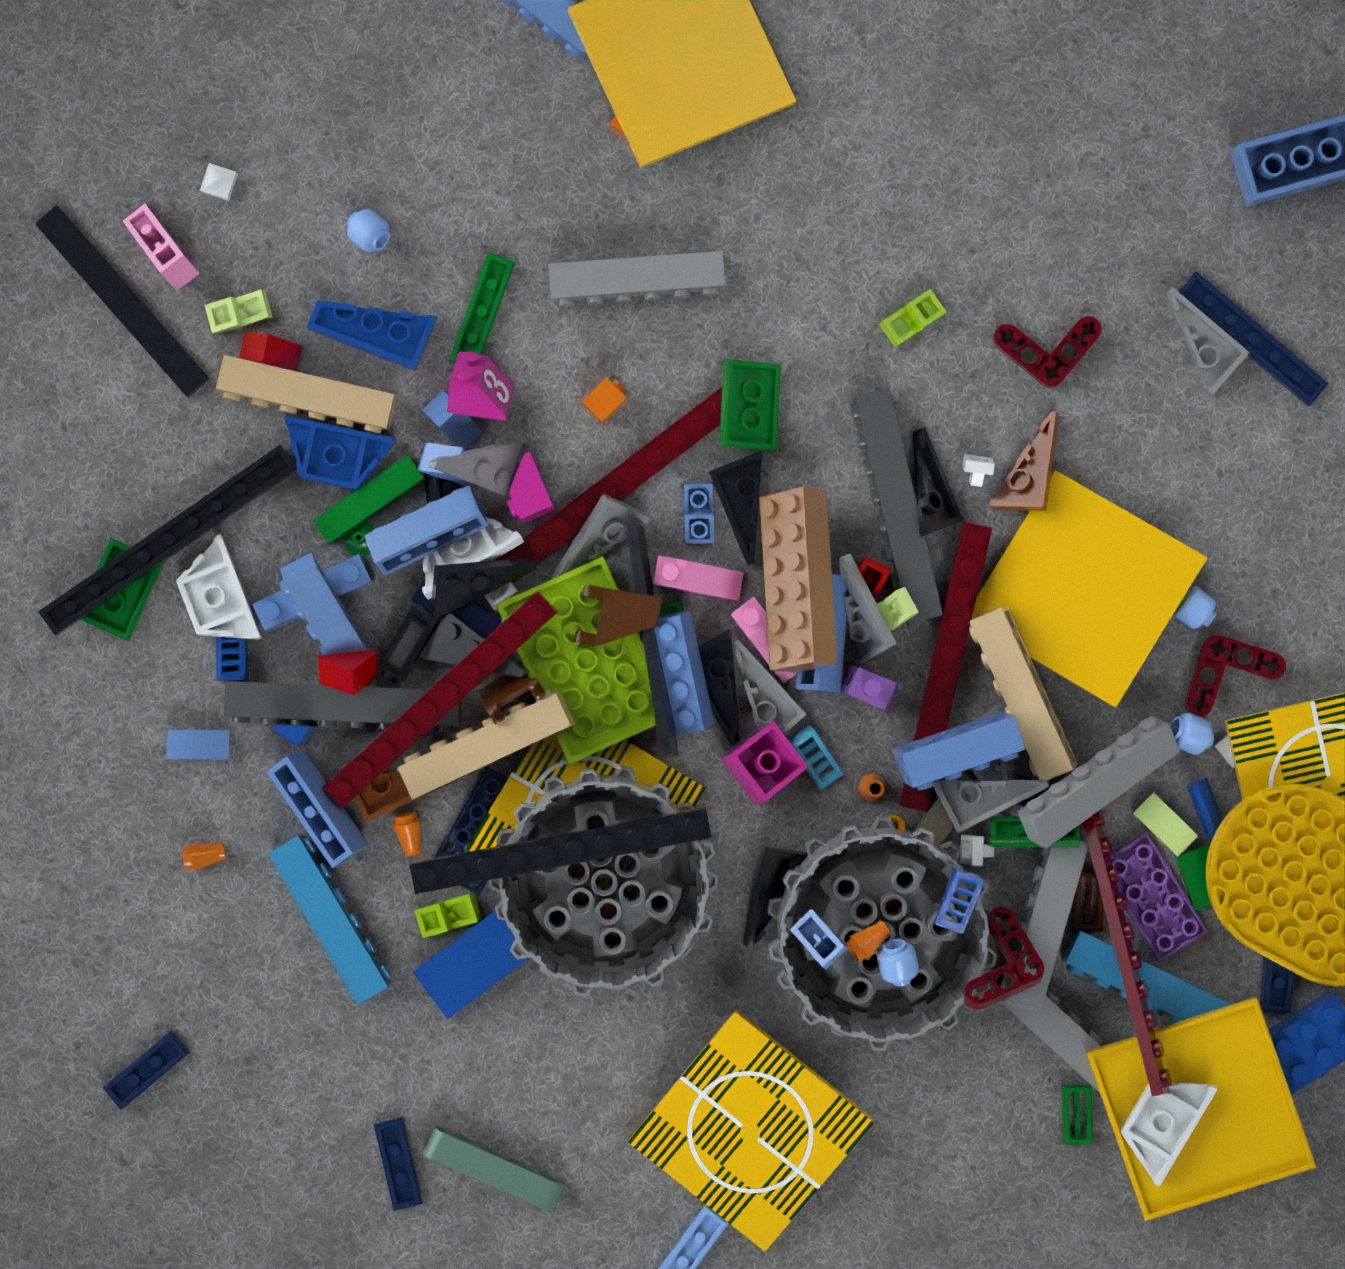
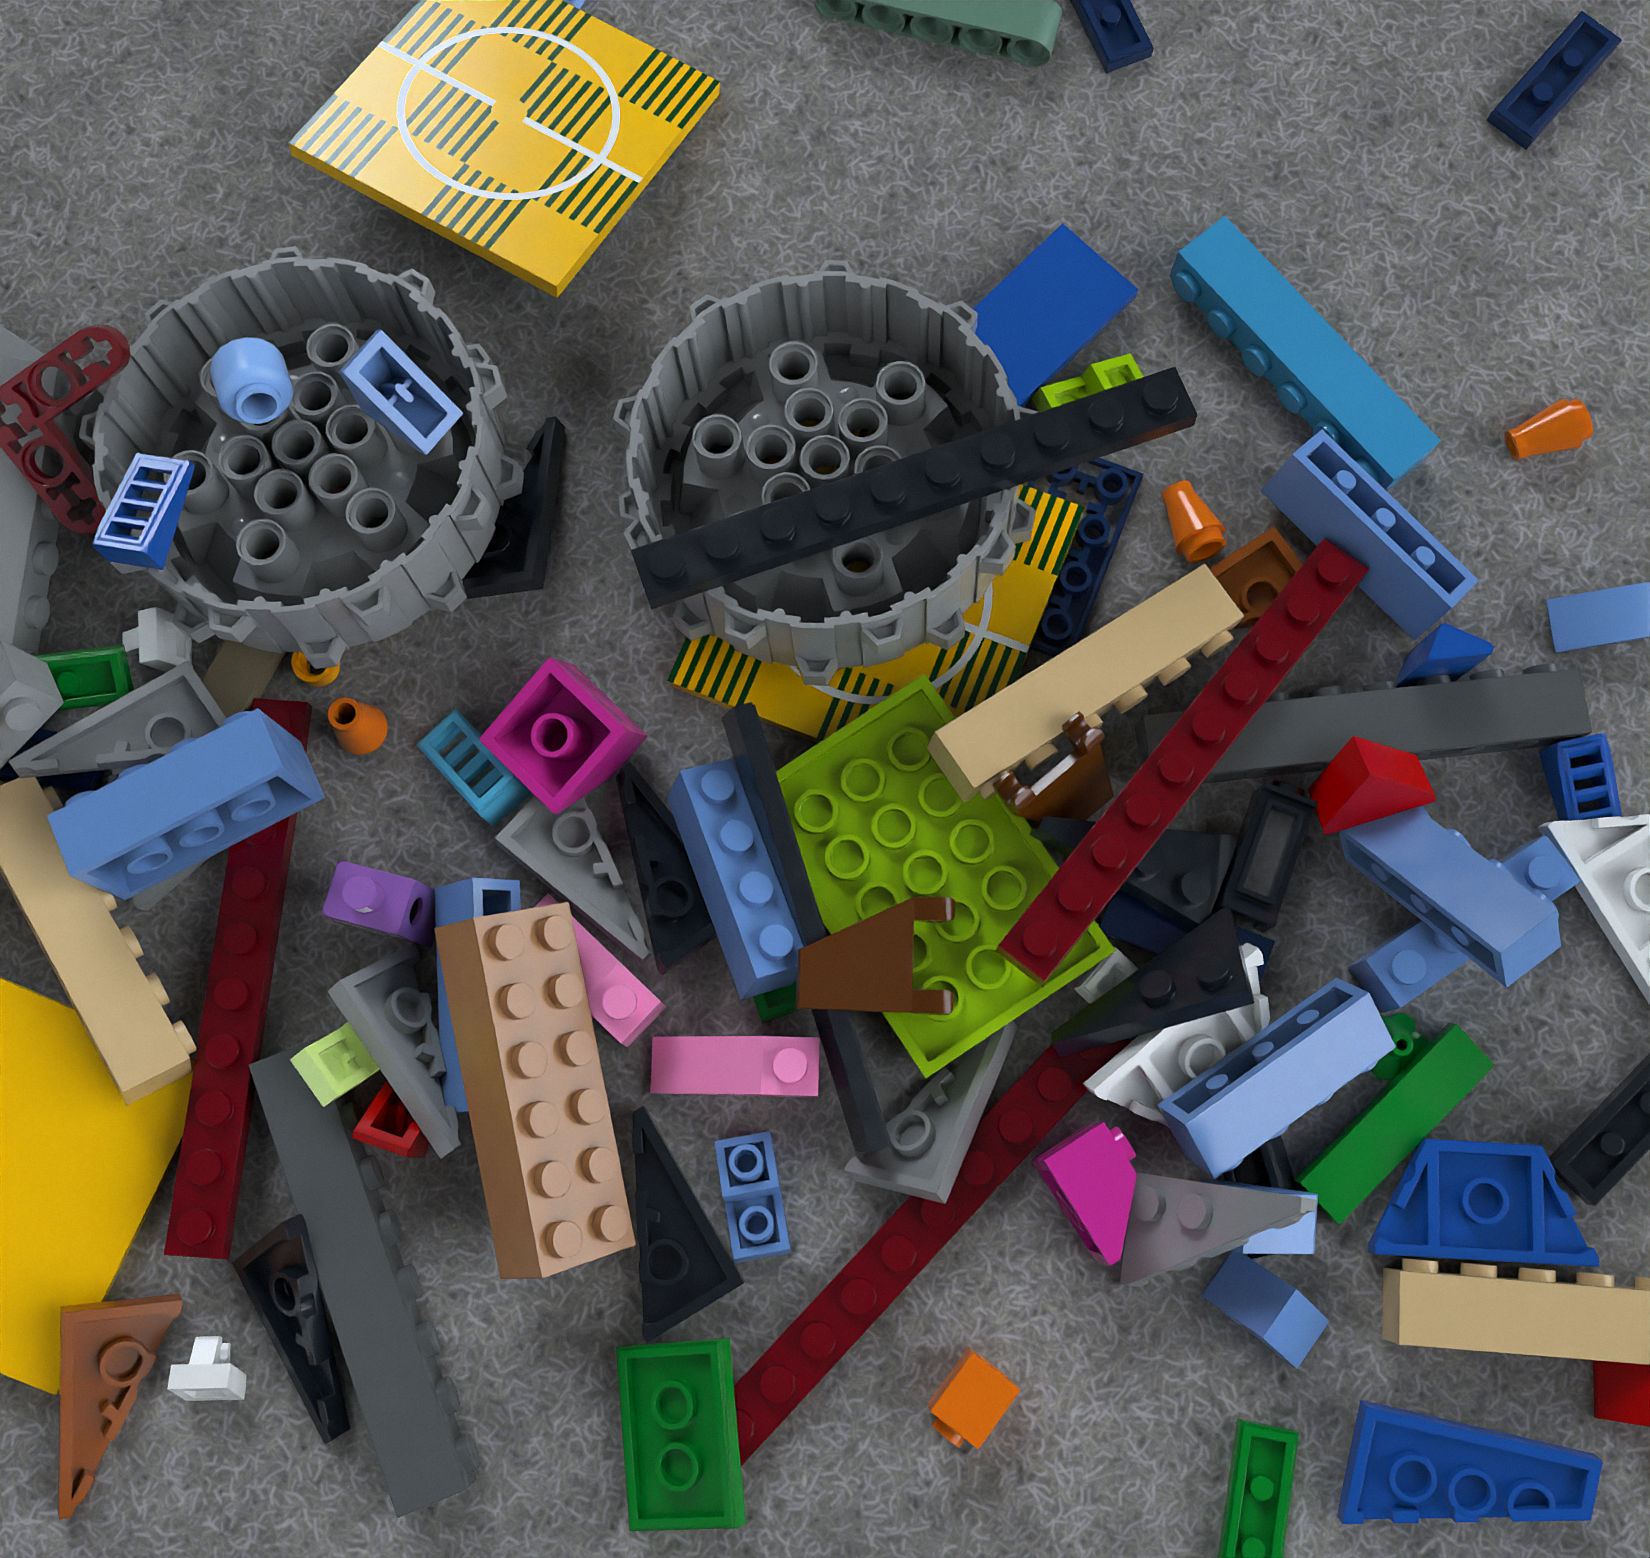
camera: 175 degrees right, 10 degrees down
(478, 388) = (1234, 1385): dark pink slope -> none
(867, 941) = (311, 410): orange cone -> none

